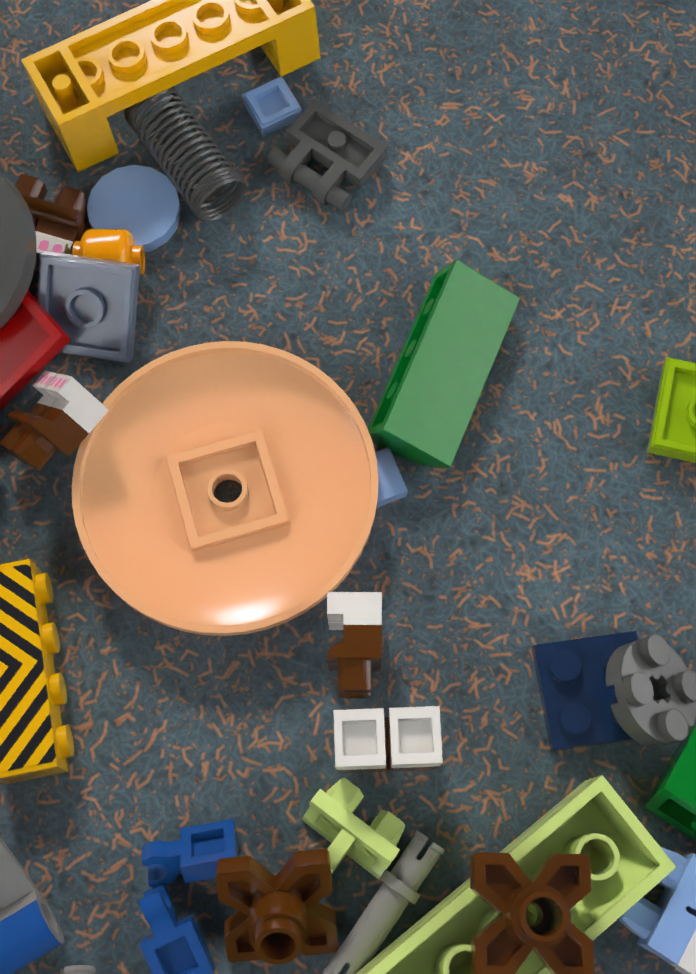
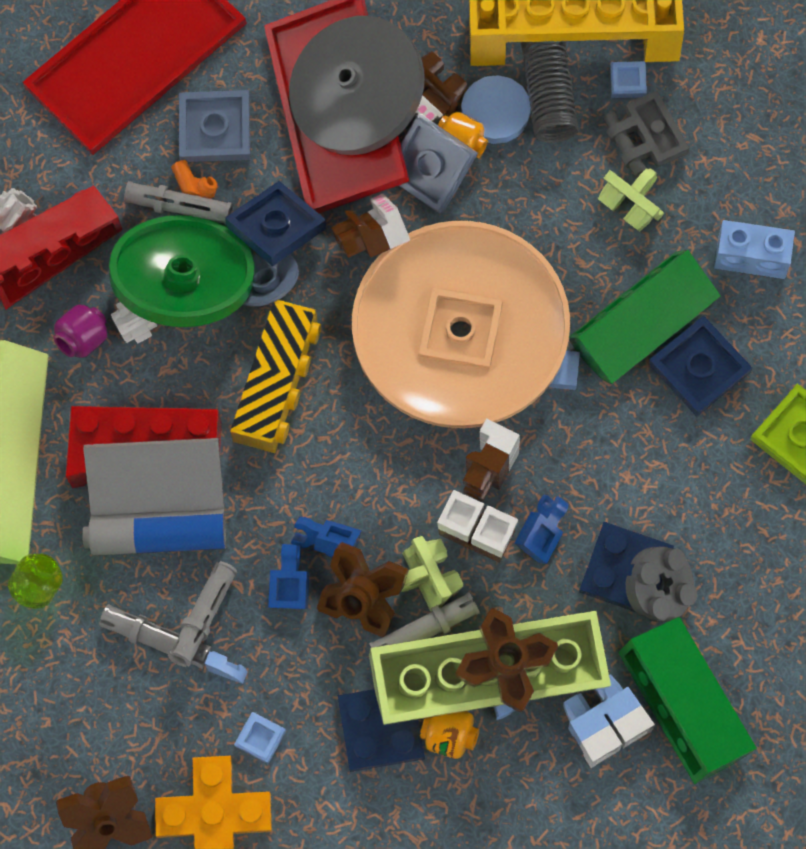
camera: 30 degrees right, 0 degrees up
(372, 238) = (643, 209): none -> yellowish green hips
(464, 699) = (540, 530): none -> blue plate
(528, 225) = (754, 249): none -> light blue brick
(541, 393) = (700, 366): none -> dark blue plate

